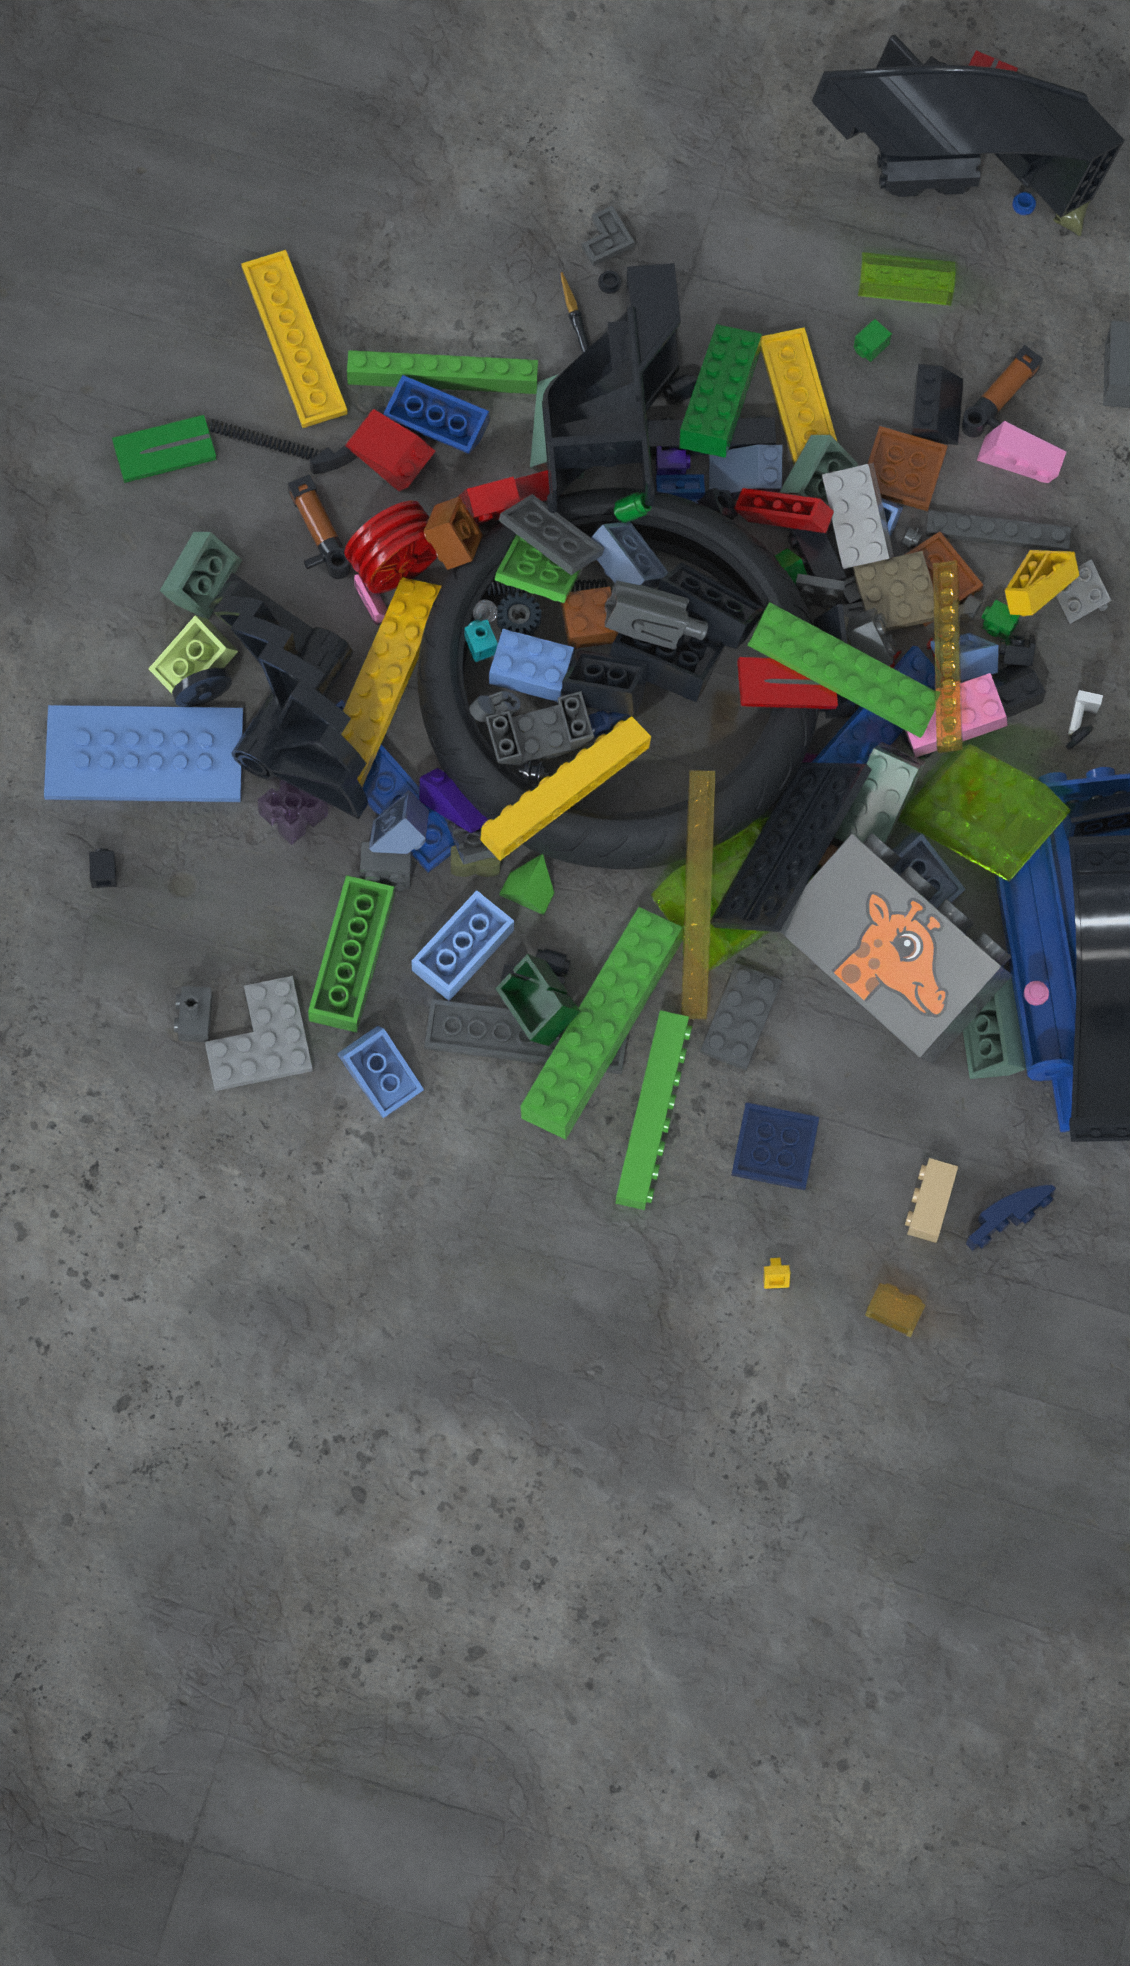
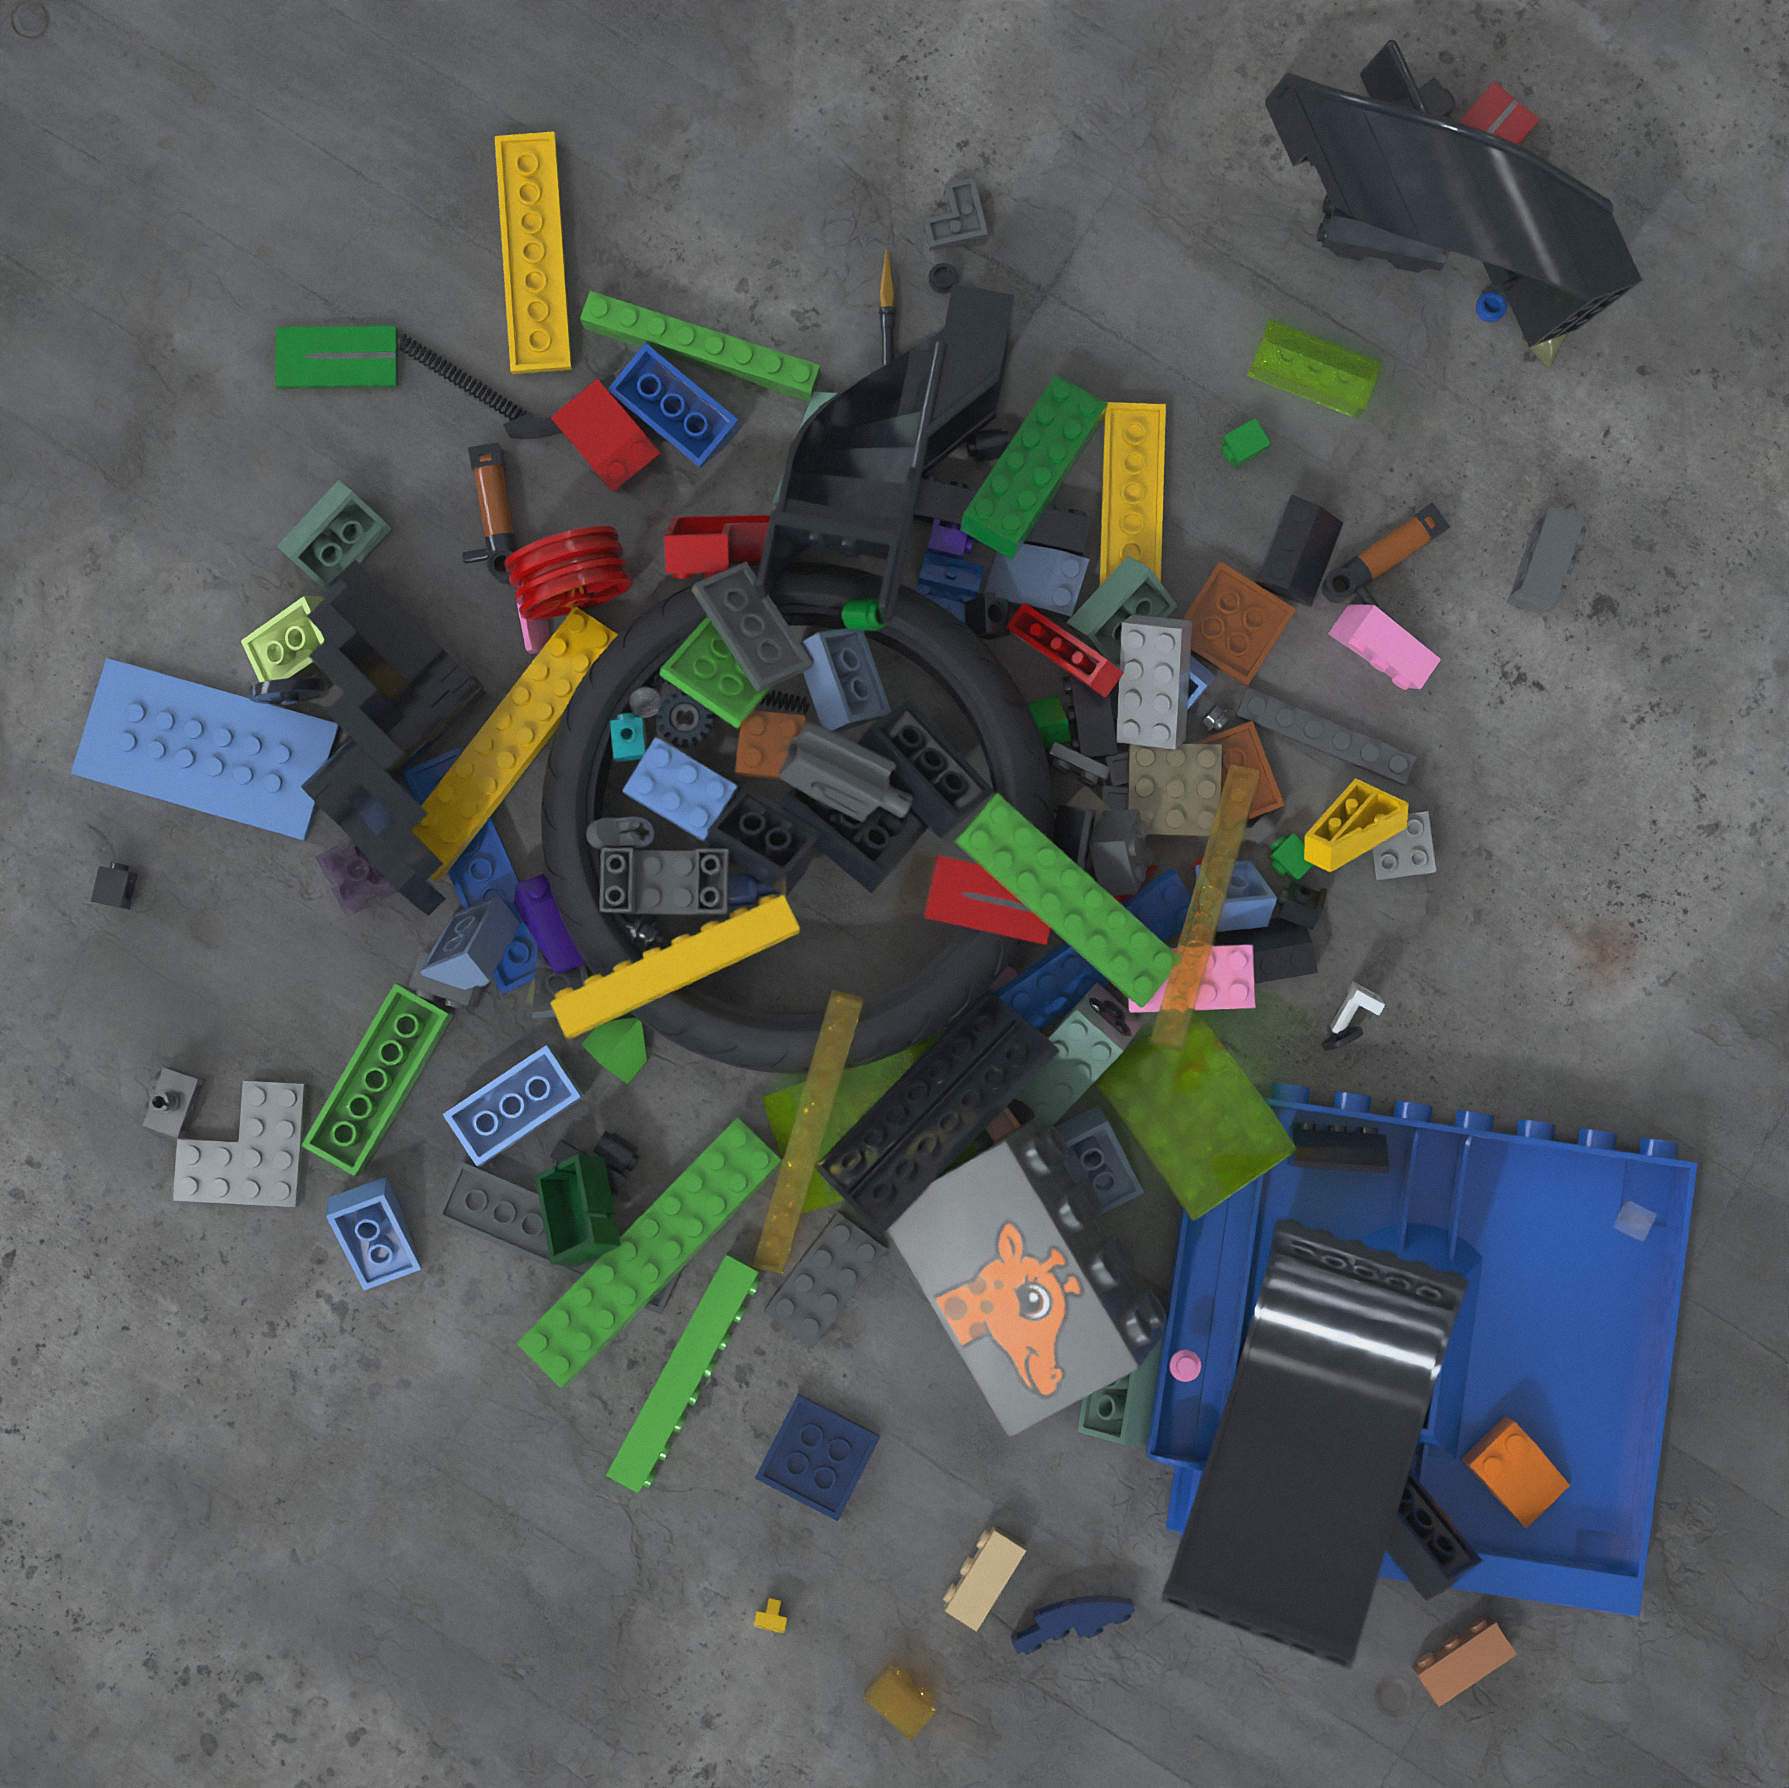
camera: 20 degrees right, 15 degrees up
(453, 533) = (635, 585): dark orange brick -> none

